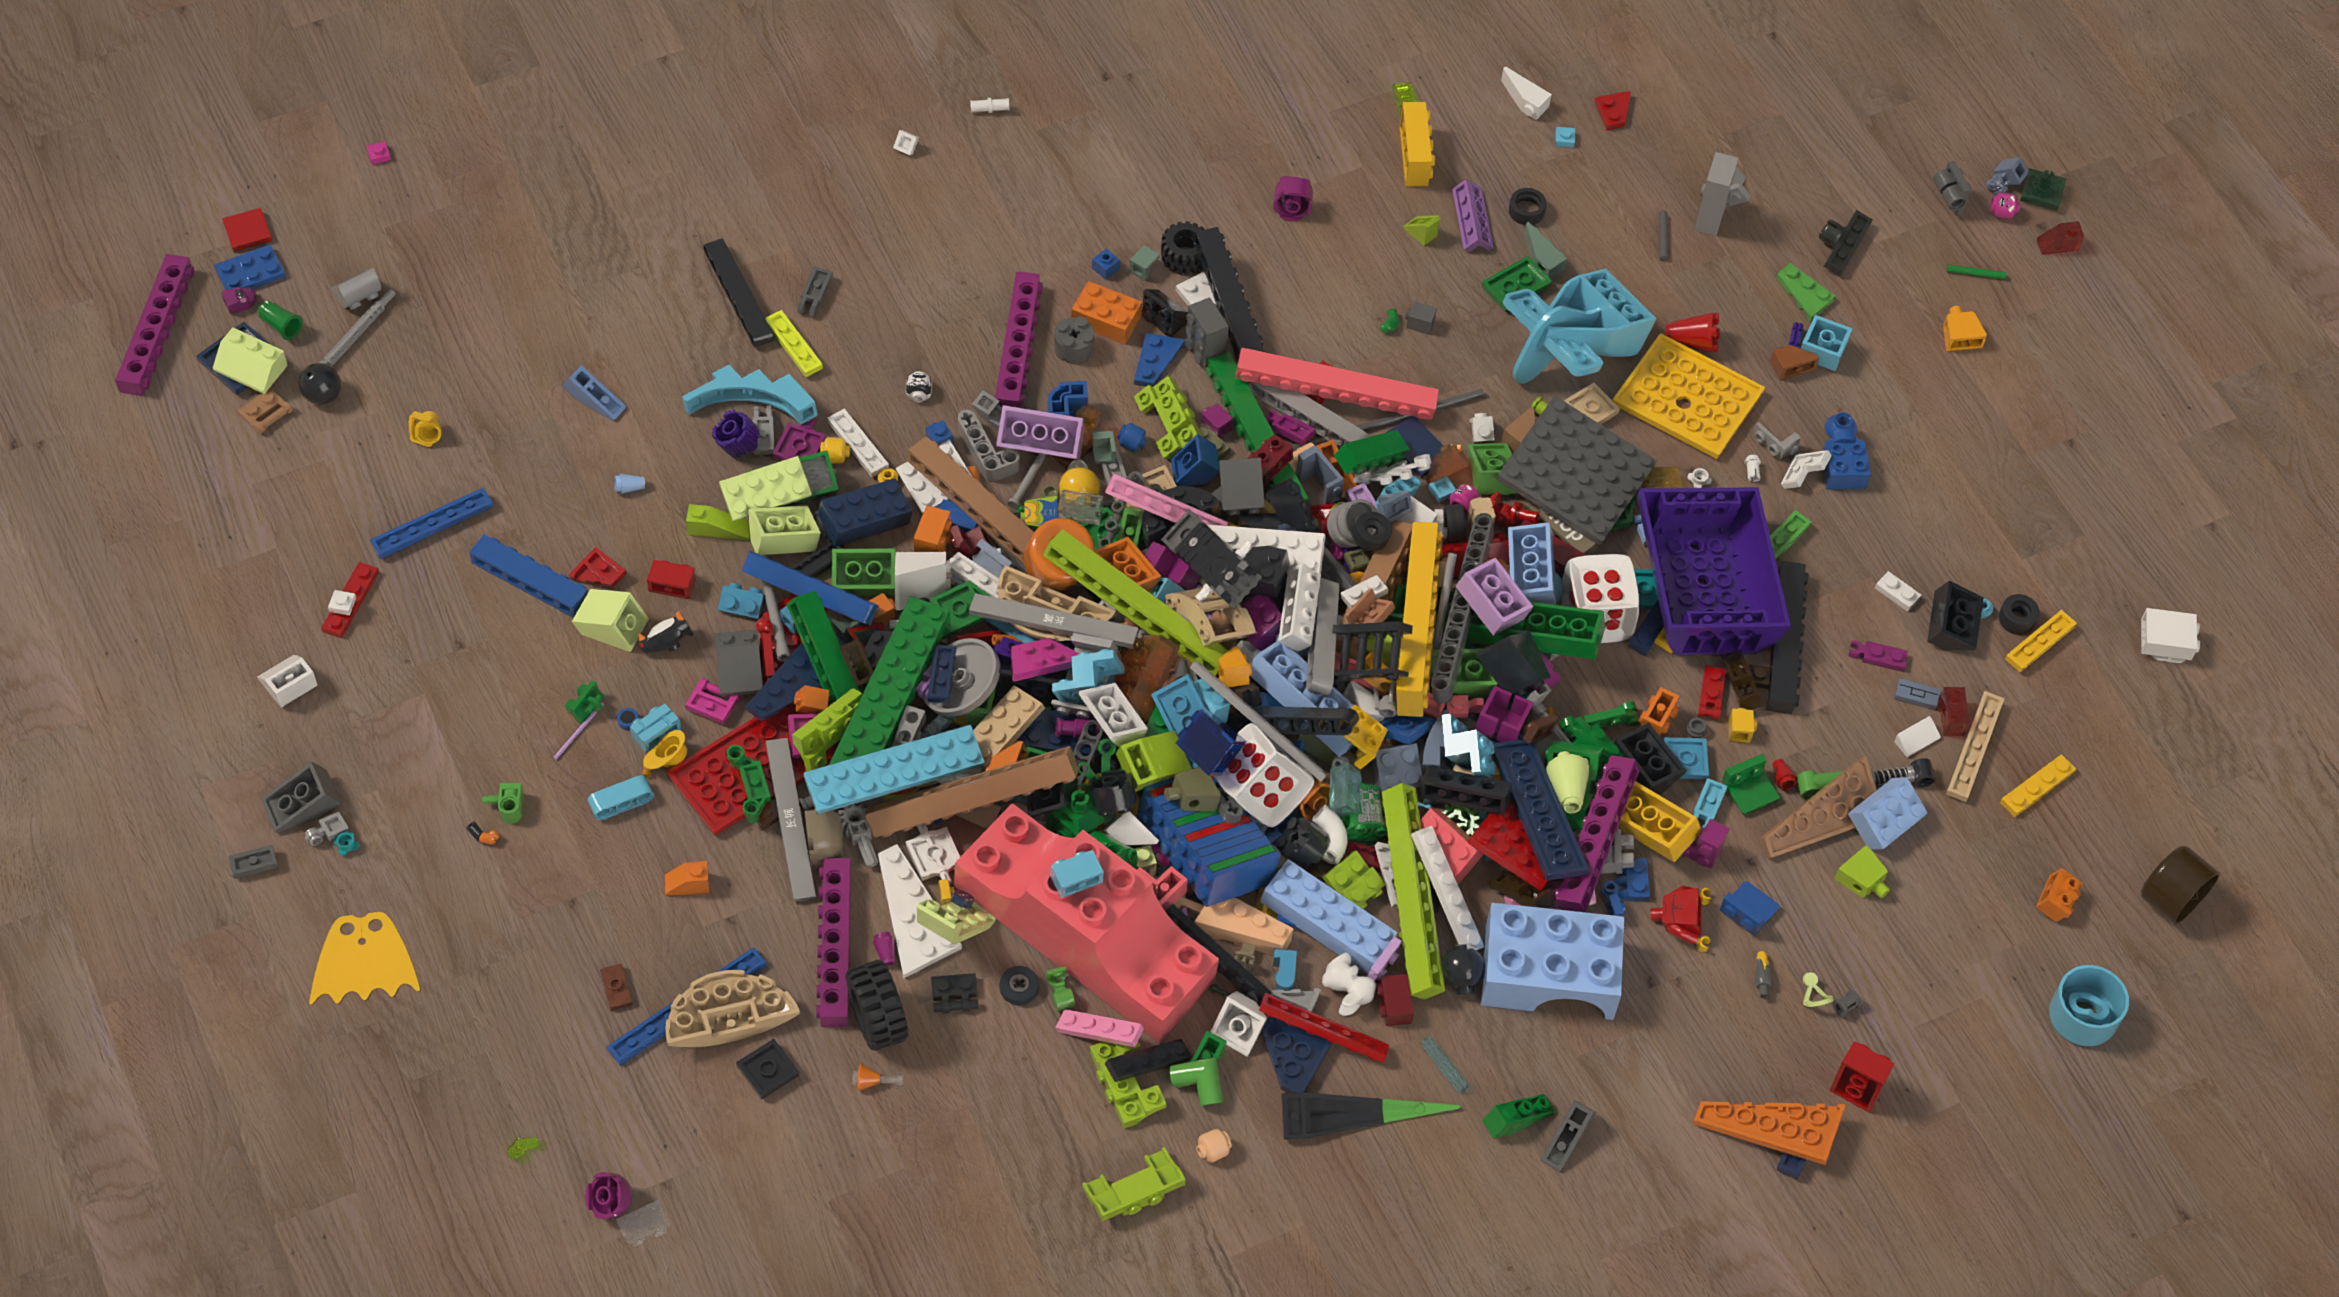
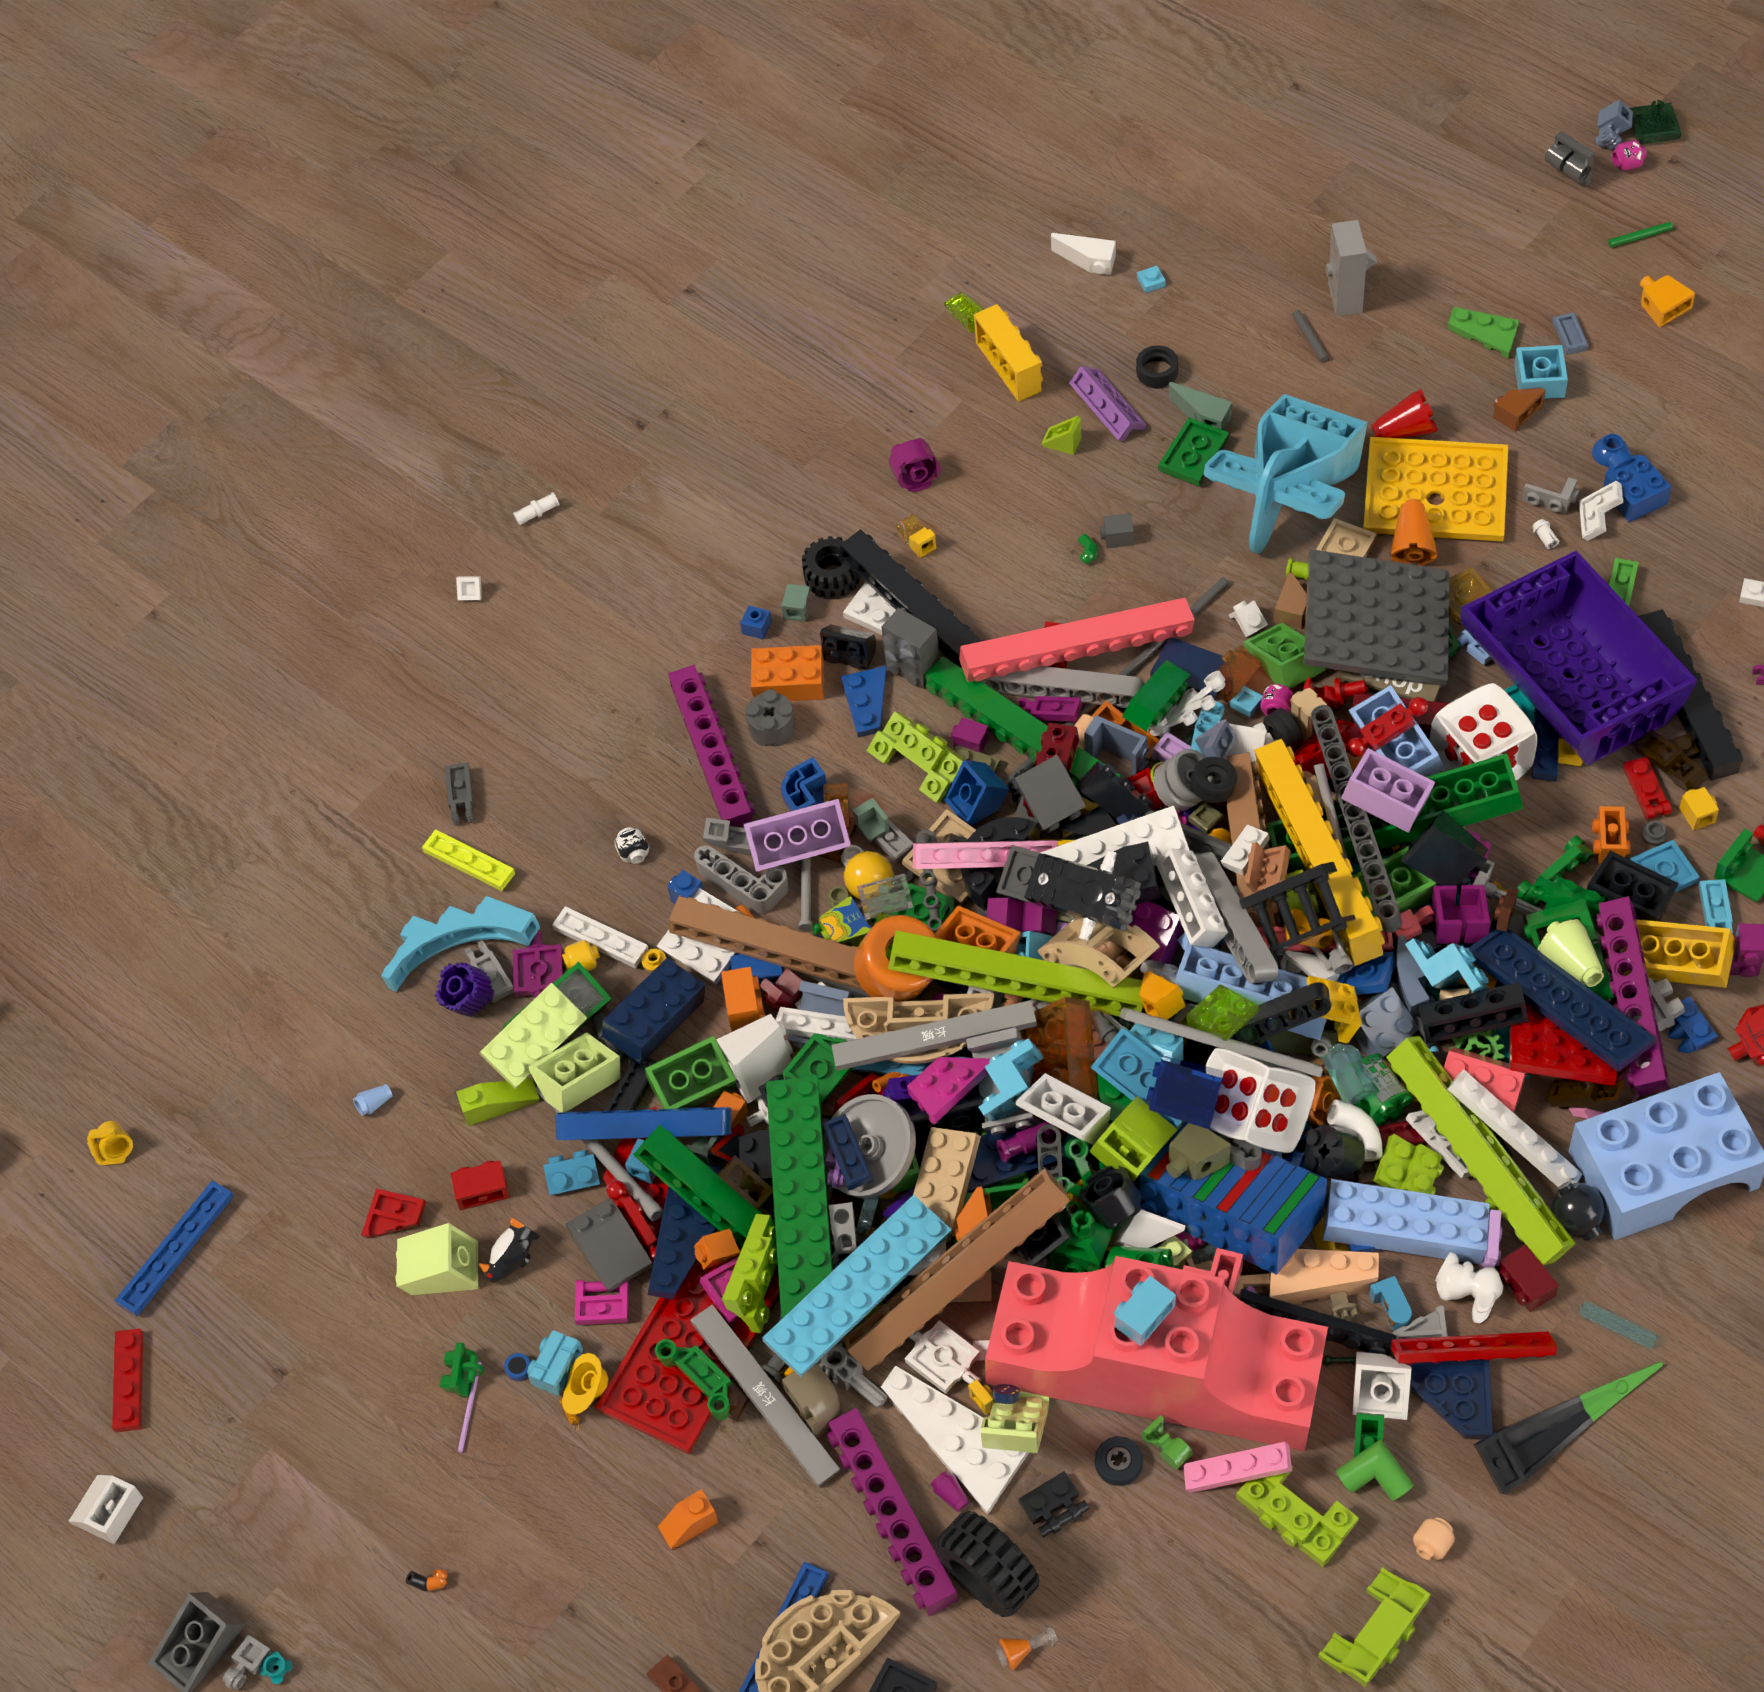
camera: 15 degrees left, 0 degrees up
(342, 602) = (122, 1388): white plate -> none
(509, 796) = (435, 1522): bright green piece -> none
(528, 575) = (318, 1256): blue brick -> none
(593, 393) = (278, 1017): medium blue slope -> none
(620, 797) = (560, 1461): medium azure beam -> none
(738, 293) = (377, 832): black beam -> none
(1132, 437) = (891, 795): blue head -> none
(1132, 525) = (951, 890): bright green slope -> none
(1148, 1060) = (1309, 1477): black plate -> none
(1265, 252) = (916, 535): none -> leg
(1269, 698) = (1222, 1013): none -> clear neon green bracket
(1516, 1115) = (1728, 1343): green slope -> none
(1528, 551) = (1387, 727): none -> red plate
(1613, 109) = (1183, 229): red wing -> none
(1614, 905) = (1688, 1064): blue plate -> none
(1644, 422) = (1413, 535): none -> orange cone
(1699, 474) = (1498, 564): white plate -> none
(1795, 338) = (1504, 378): dark purple axle -> none
(1844, 240) = (1493, 260): pearl dark grey plate -> none
(1870, 324) = (1570, 333): none -> sand blue tile
(2061, 238) = (1703, 164): clear red slope -> none

